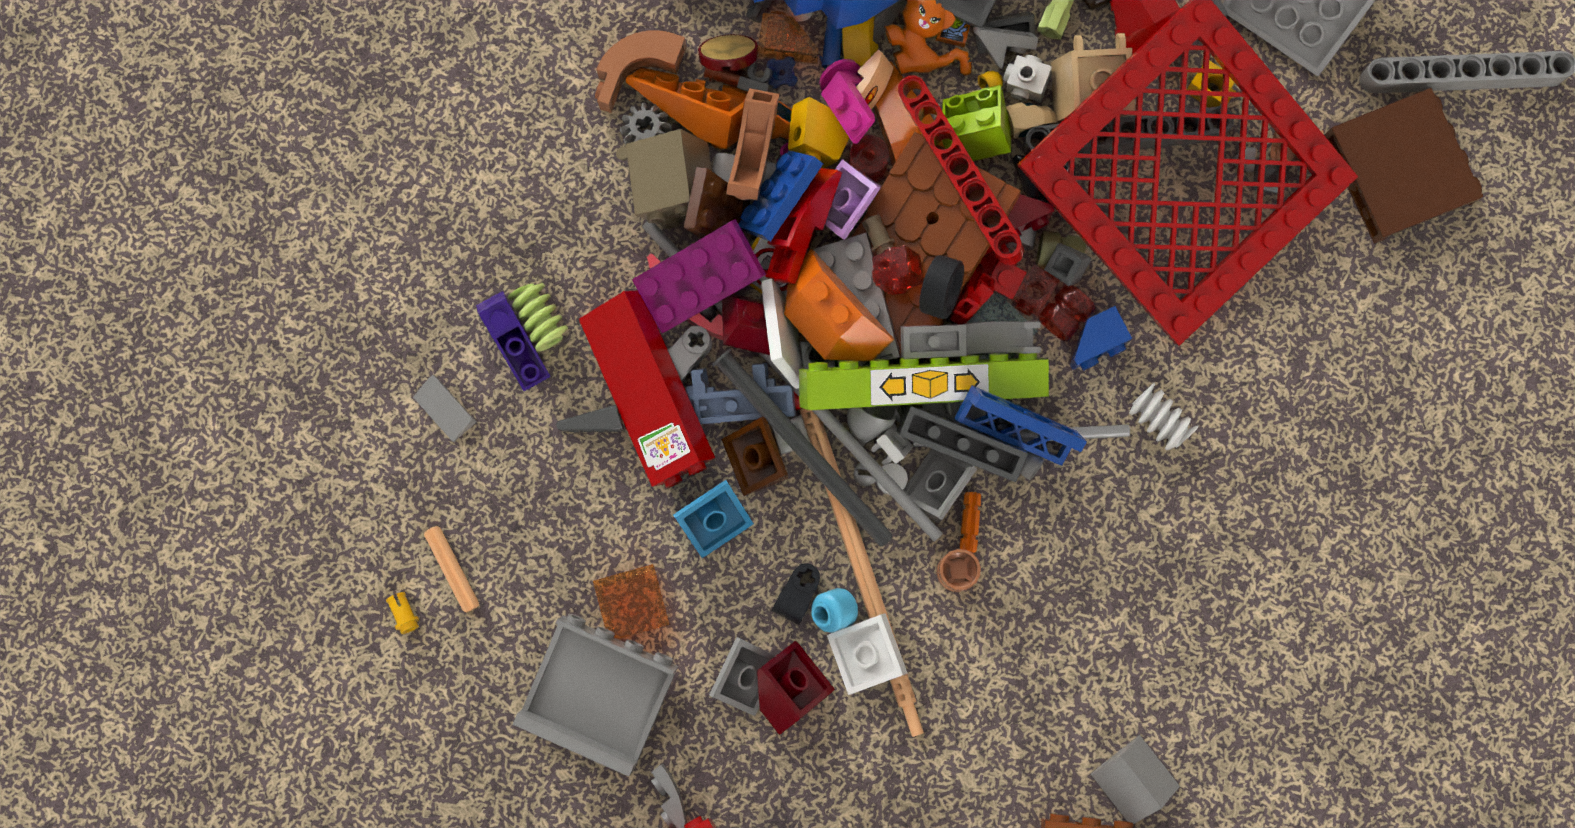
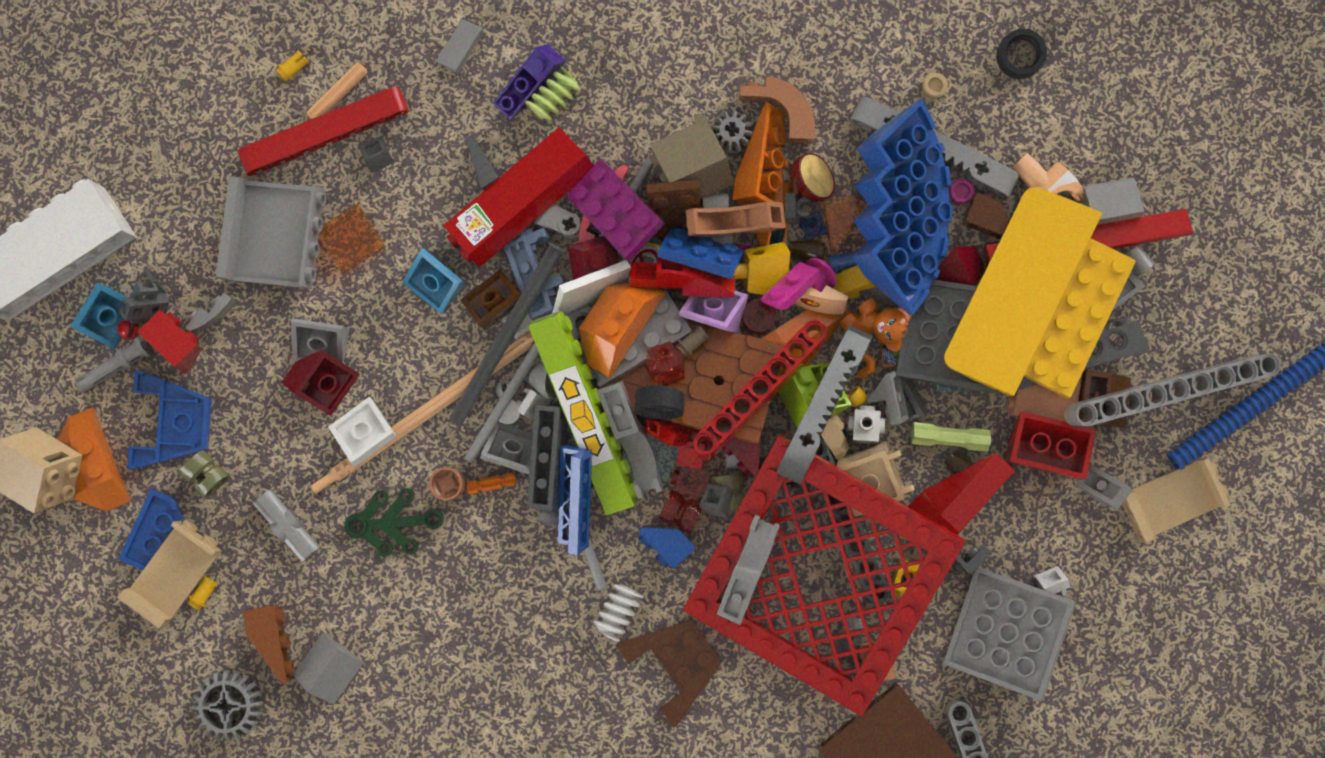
camera: 70 degrees right, 5 degrees up
(491, 599) = (322, 130): none -> red beam
(540, 544) = (376, 154): none -> dark grey slope
(794, 598) = (392, 364): black piece -> none
(807, 83) = (807, 249): none -> dark brown cone
(834, 610) = (388, 396): medium azure head -> none
(952, 779) = (286, 525): none -> light grey piece
(983, 655) = (389, 522): none -> dark green plant
(1033, 130) = (798, 457): none -> gear
(1160, 249) = (748, 570): none -> light grey piece
(1234, 359) = (685, 658): none -> reddish brown wing

